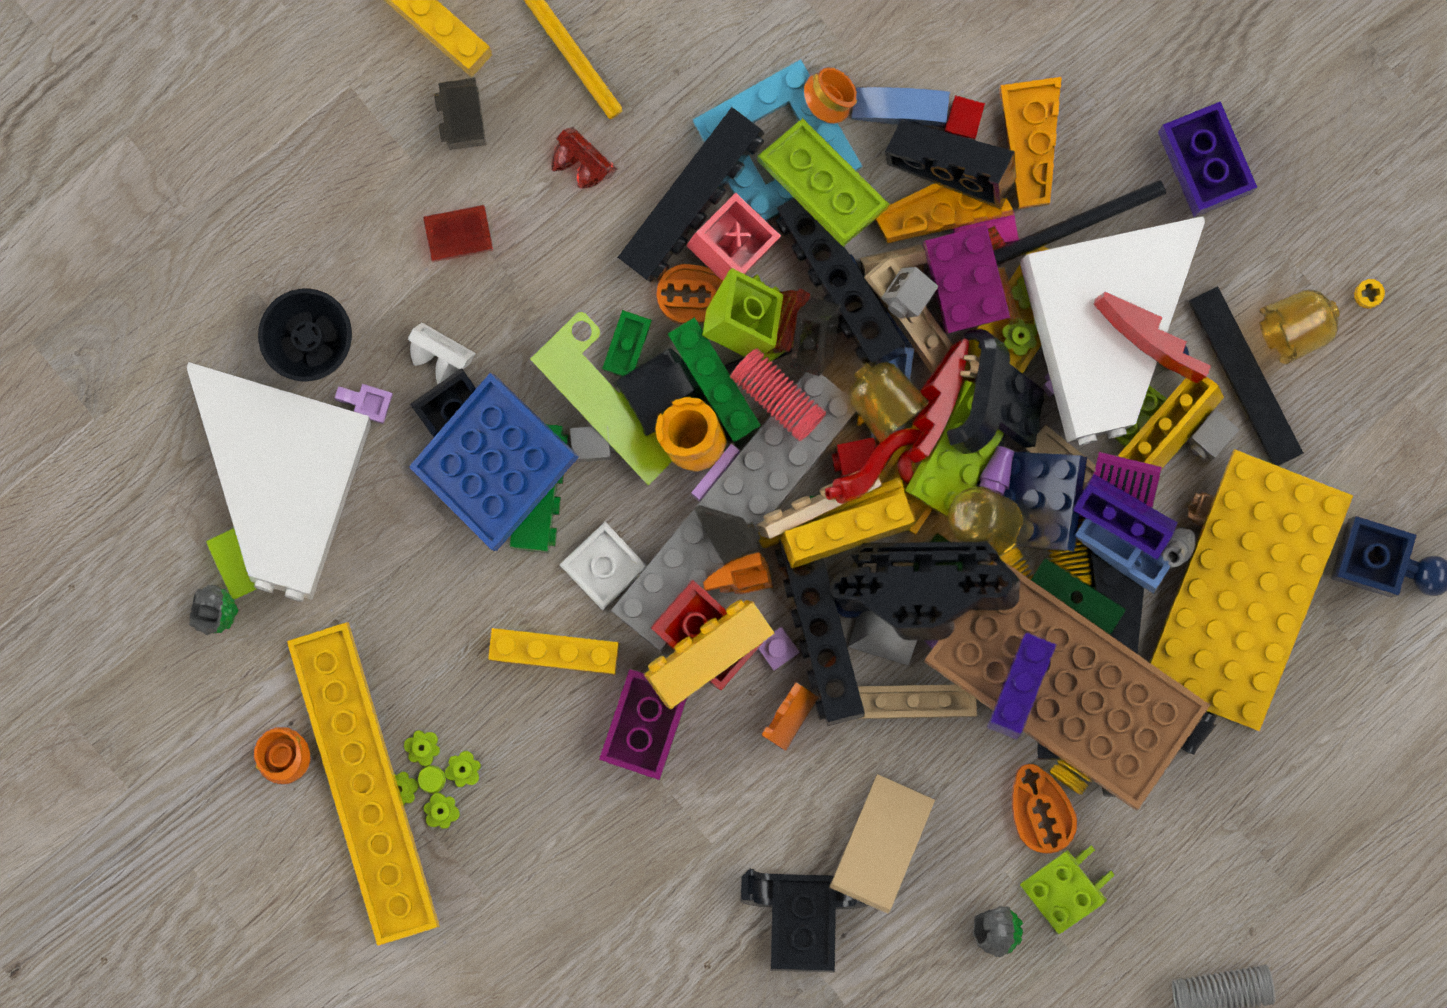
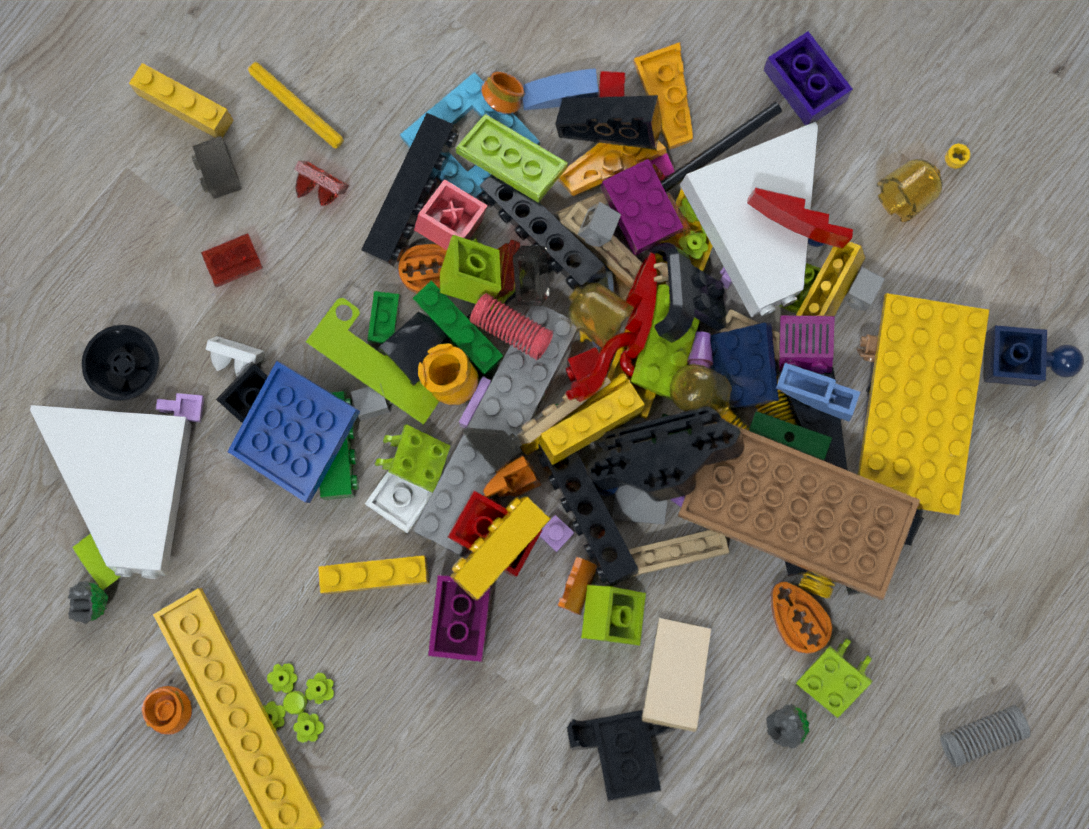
camera: 10 degrees left, 5 degrees down
(633, 525) = (417, 458): none -> lime plate
(824, 759) = (613, 615): none -> lime slope
(1021, 686) = (763, 517): dark purple brick -> none
(1125, 516) = (815, 361): dark purple brick -> none
(1179, 547) = (861, 379): light grey hinge -> none
(1246, 377) = (877, 239): black tile -> none

